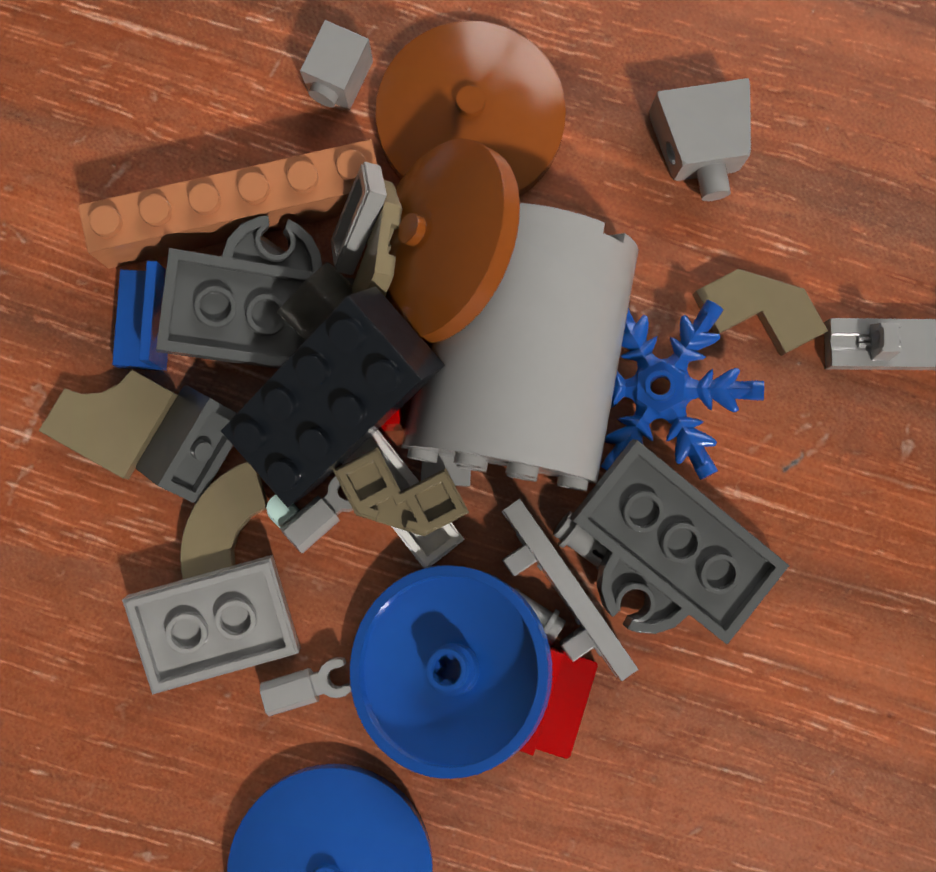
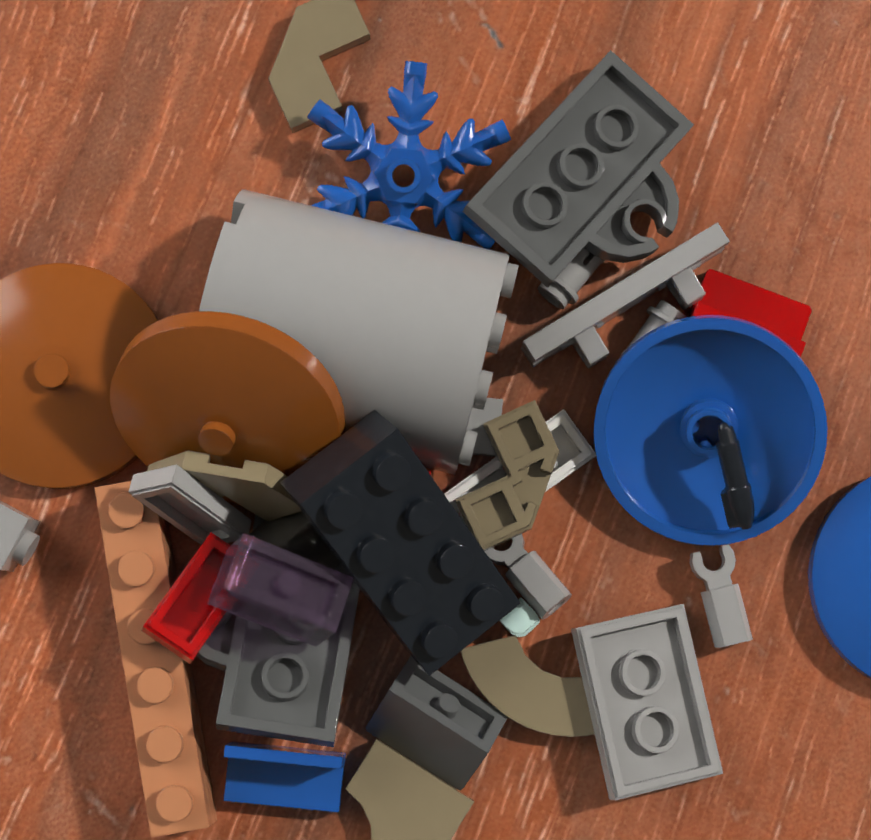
camera: 85 degrees left, 0 degrees up
(278, 230) = (183, 617): none -> red tile
(283, 294) = (280, 590): none -> clear purple panel
(392, 697) = (737, 494): none -> black piece
(704, 133) = (106, 104): light grey torso -> none

